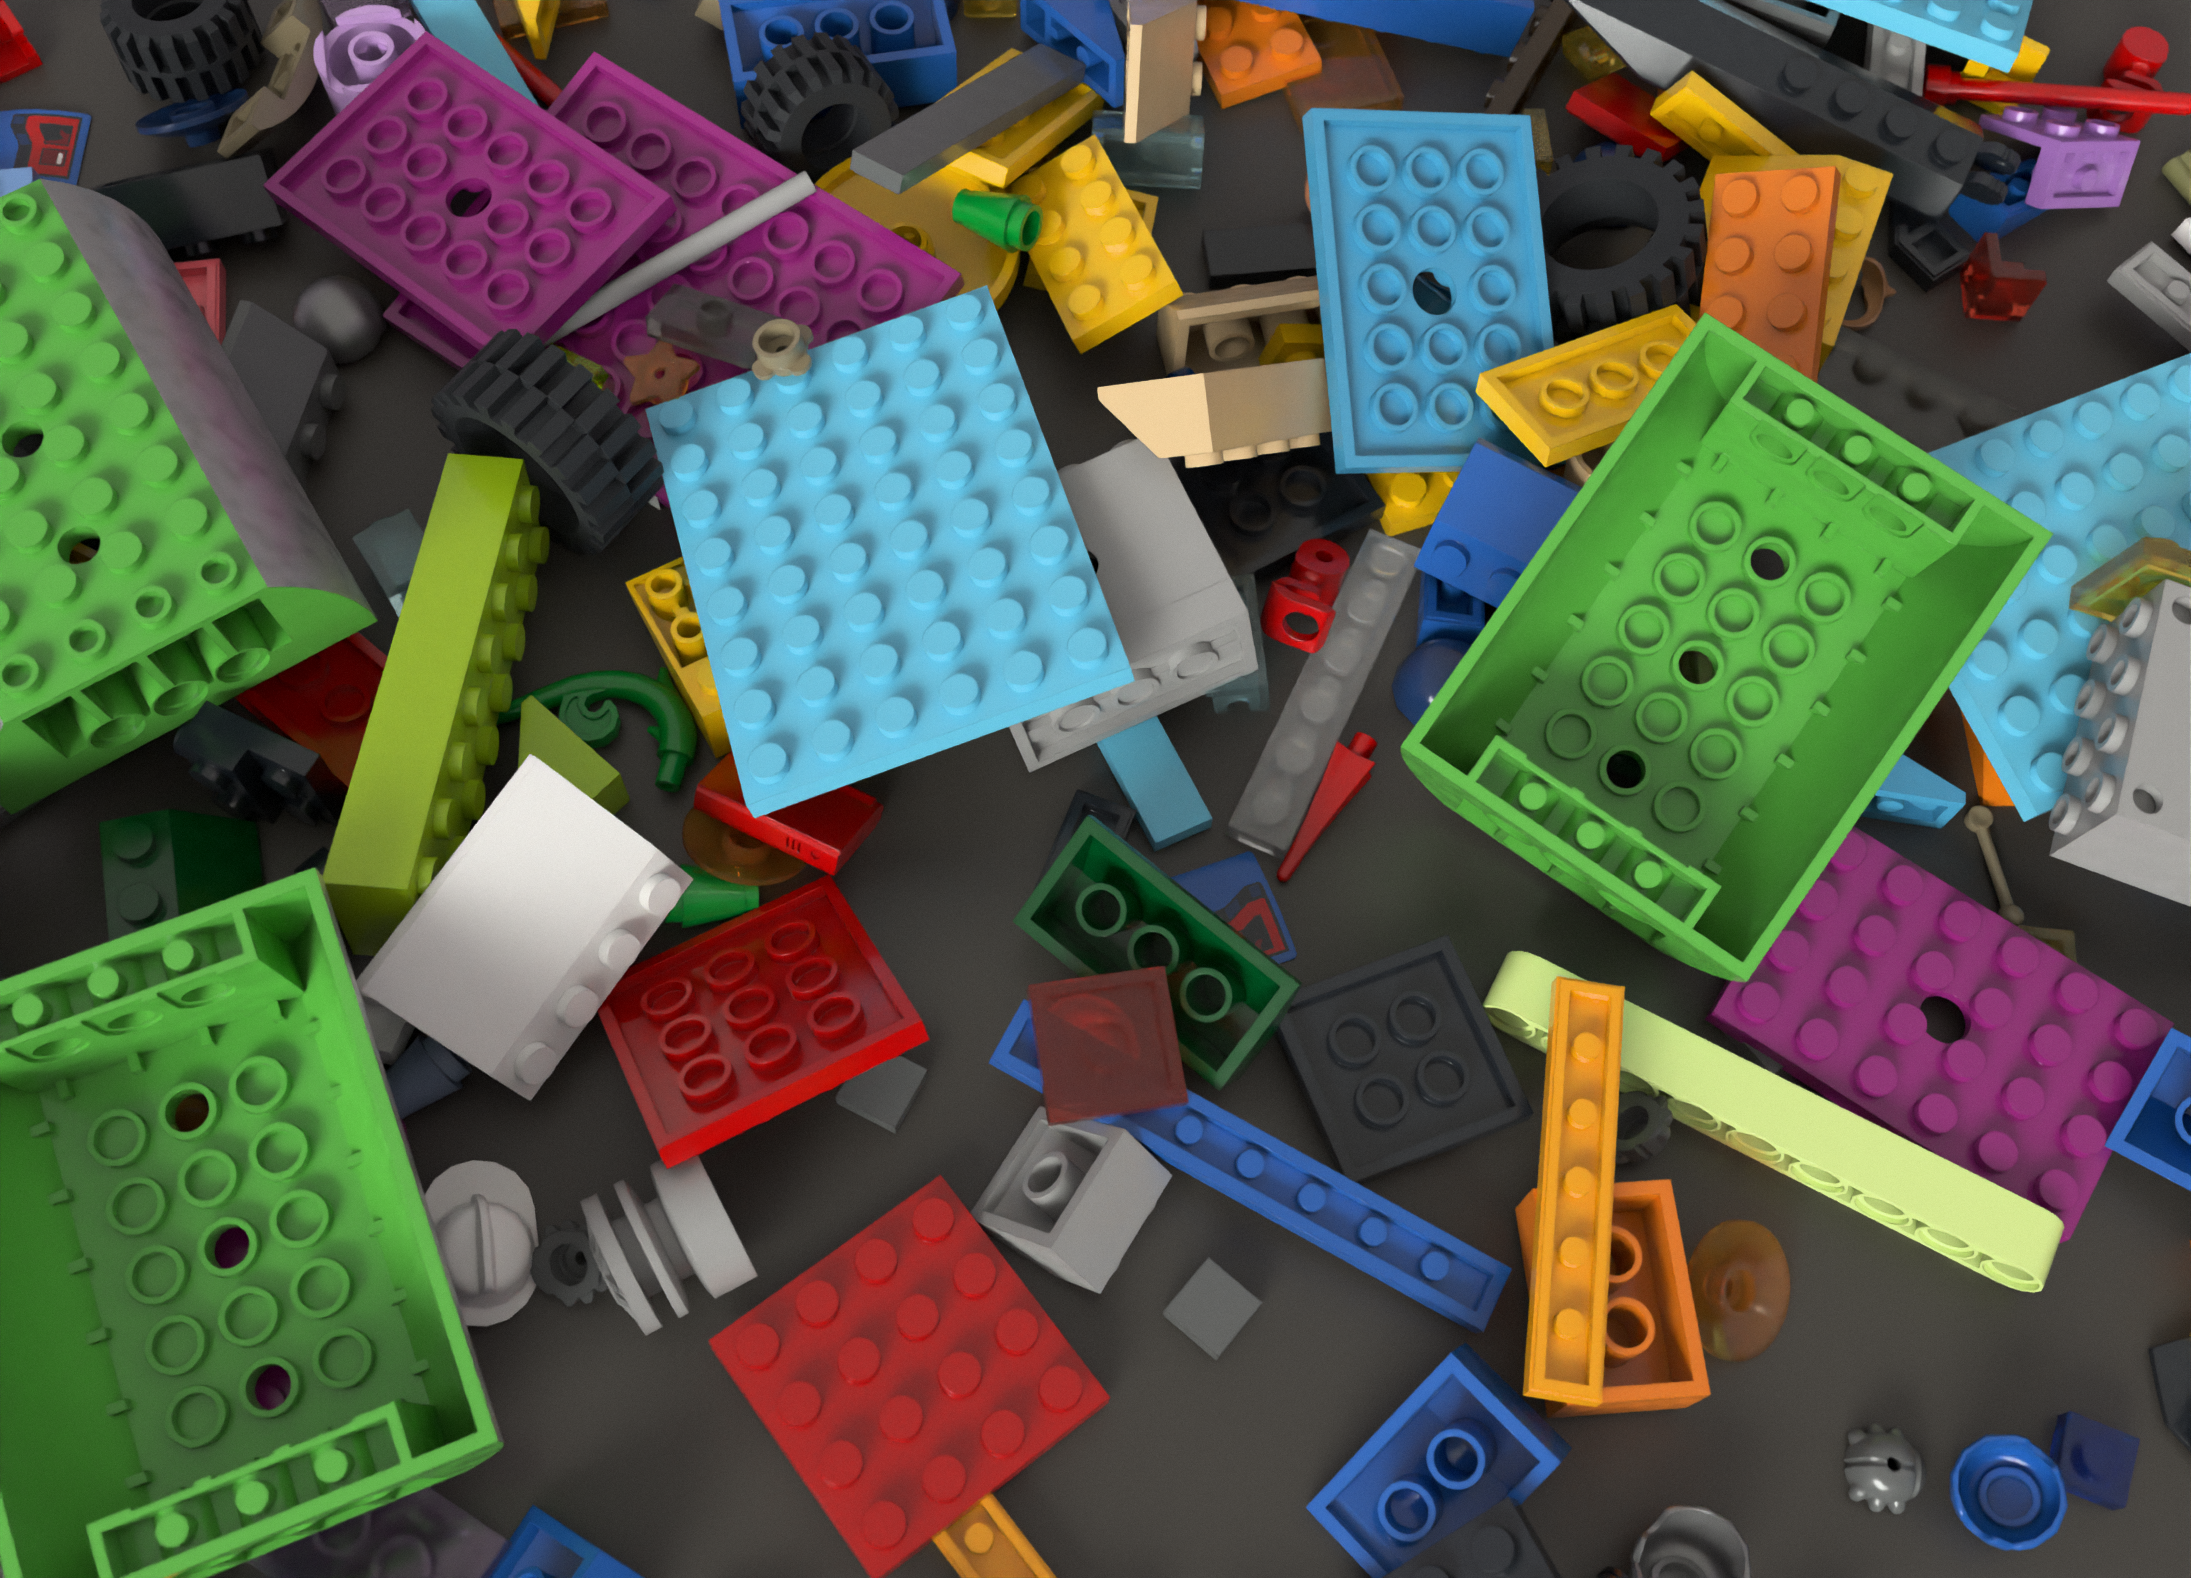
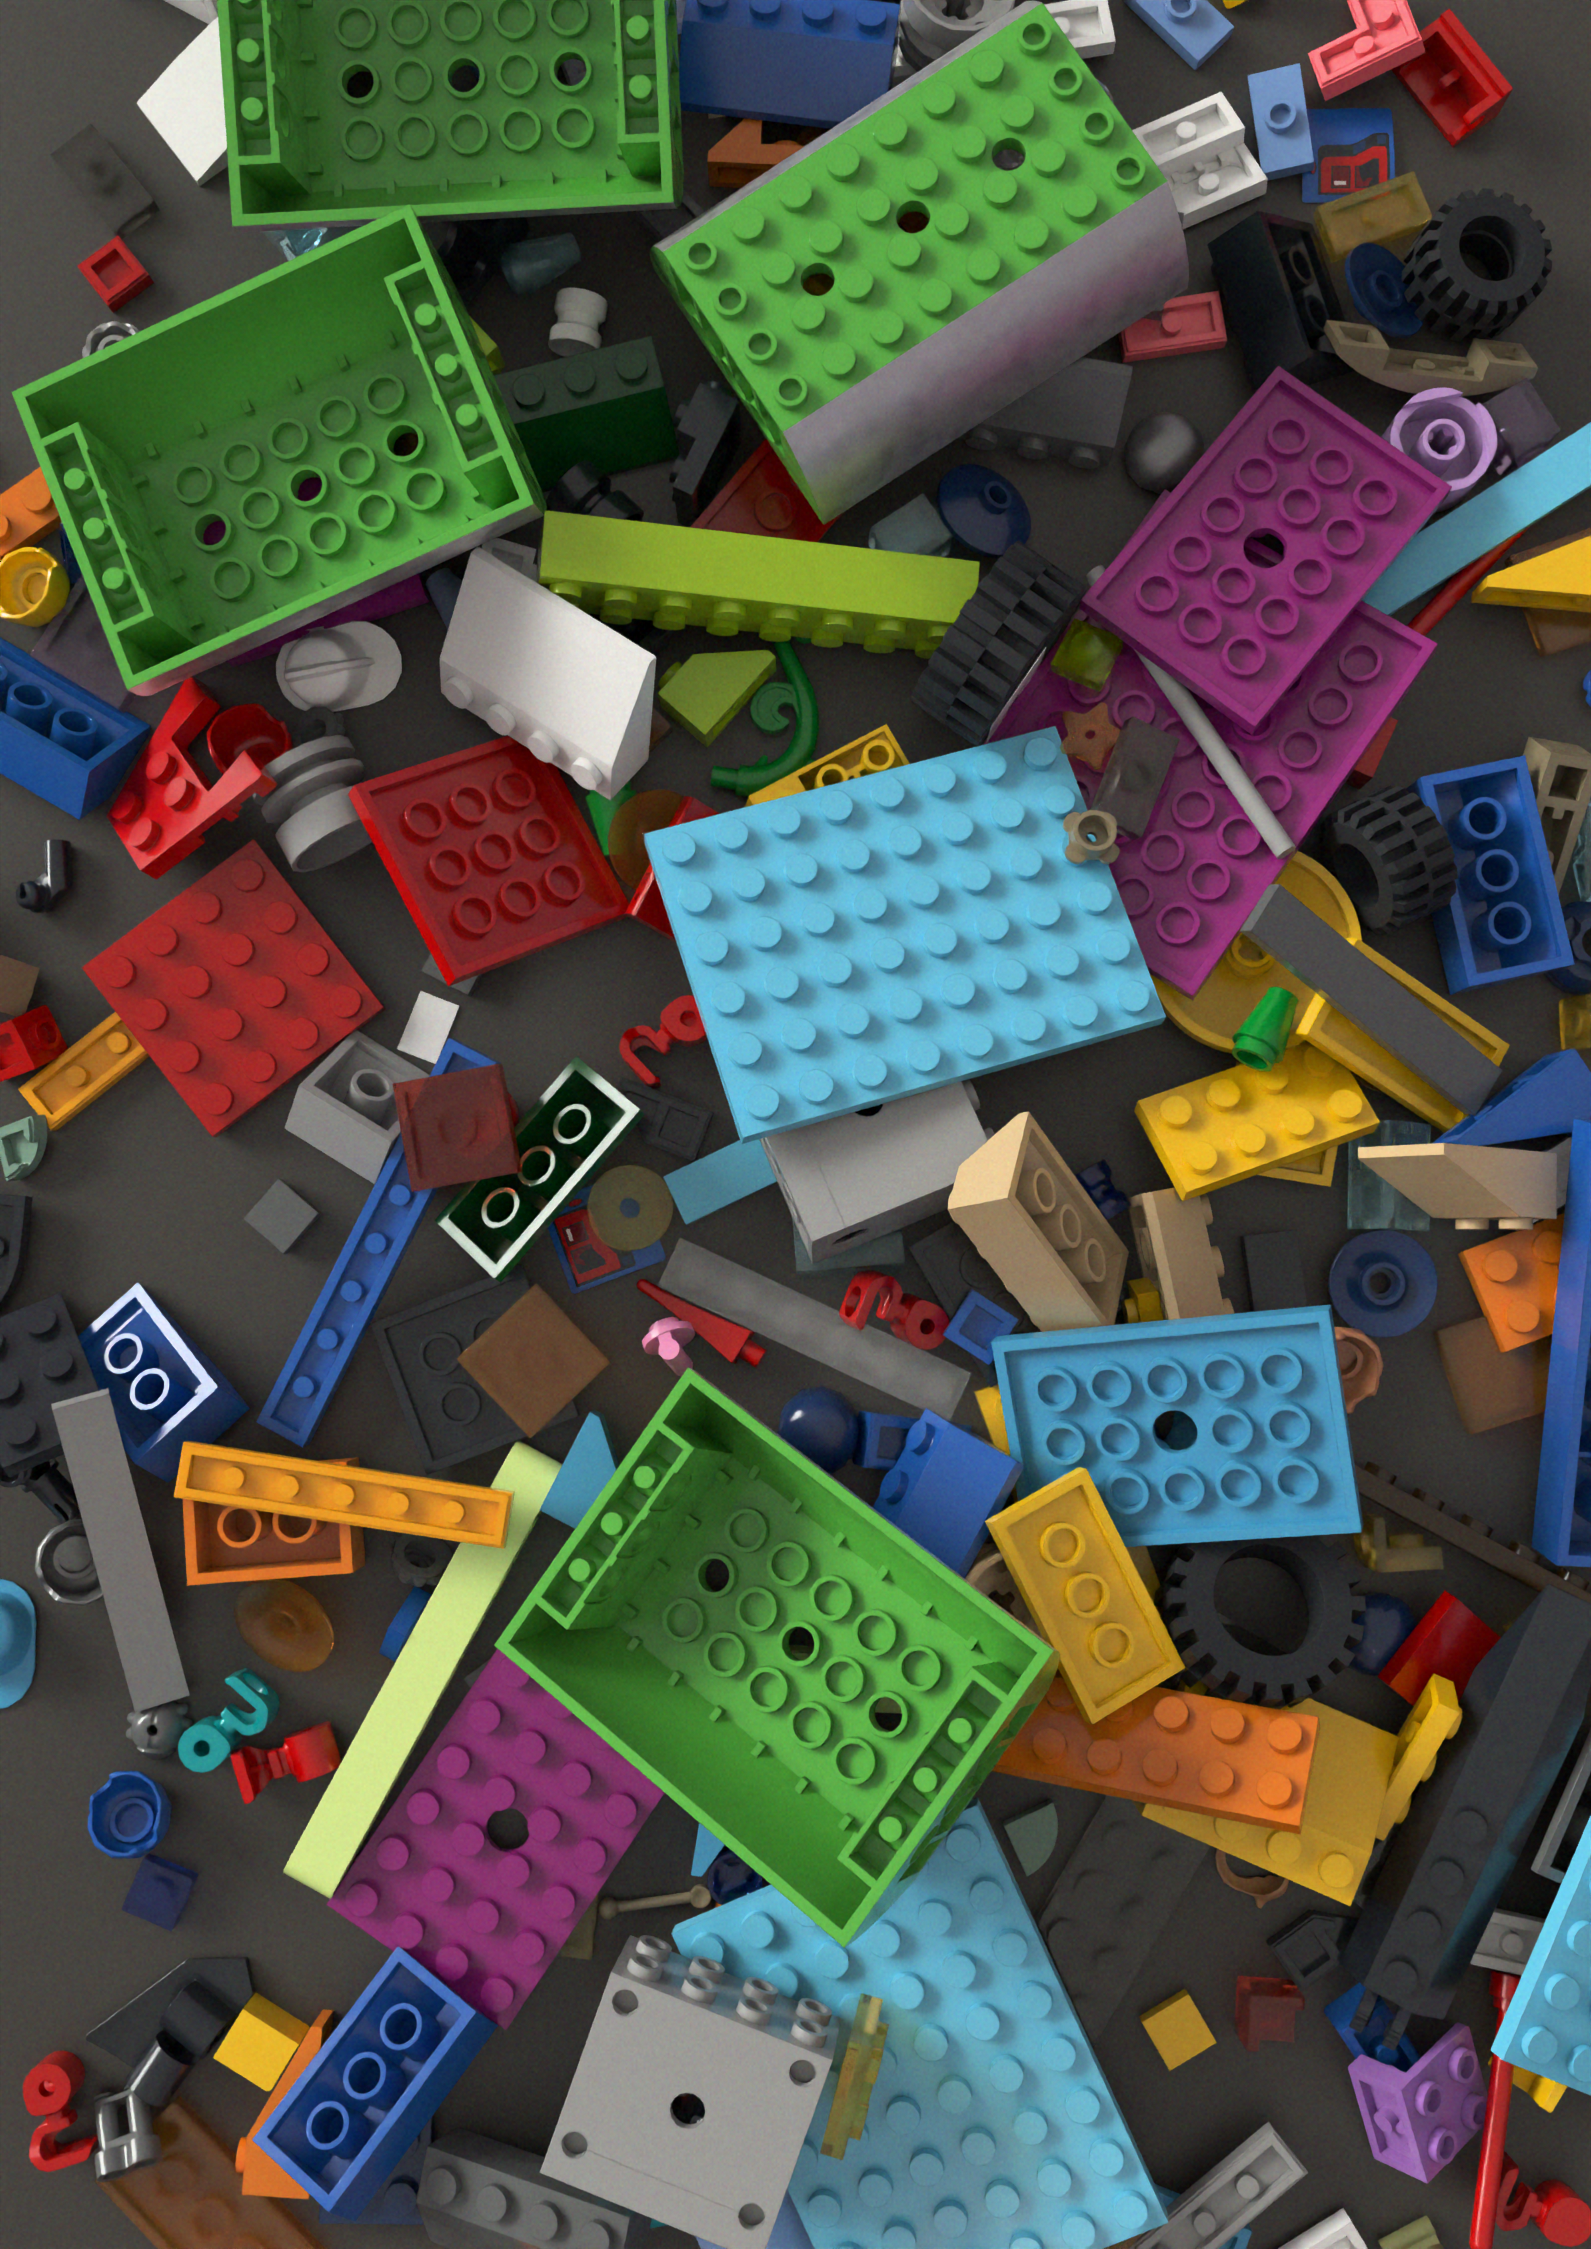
camera: 95 degrees right, 20 degrees up
(51, 928) = (577, 322): none -> white wheel
(106, 125) = (1372, 215): none -> clear yellow plate
(379, 487) = (982, 510): none -> dark blue dish
(579, 1346) = (248, 729): none -> red hair
(655, 1452) = (169, 796): none -> red wing
(965, 1129) = (428, 1027): none -> white sticker
(970, 826) = (678, 1025): none -> red leg
(1208, 860) = (636, 1184): none -> clear yellow piece
(1256, 157) = (1409, 1287): none -> dark blue dish
(1323, 502) = (978, 1324): none -> blue plate
(1349, 837) = (667, 1340): none -> bright pink plate
(1386, 980) = (533, 1360): none -> clear orange tile
(1522, 916) = (583, 1473): none -> dark azure slope
(1666, 1492) = (120, 1549): none -> light grey tile
(1717, 1145) = (404, 1623): none -> blue tile
(1892, 1264) = (304, 1755): none -> red leg
(1892, 1387) = (215, 1737): none -> teal leg
(1959, 760) = (732, 1881): none -> clear blue wheel
(2030, 364) = (1177, 2029): none -> yellow tile

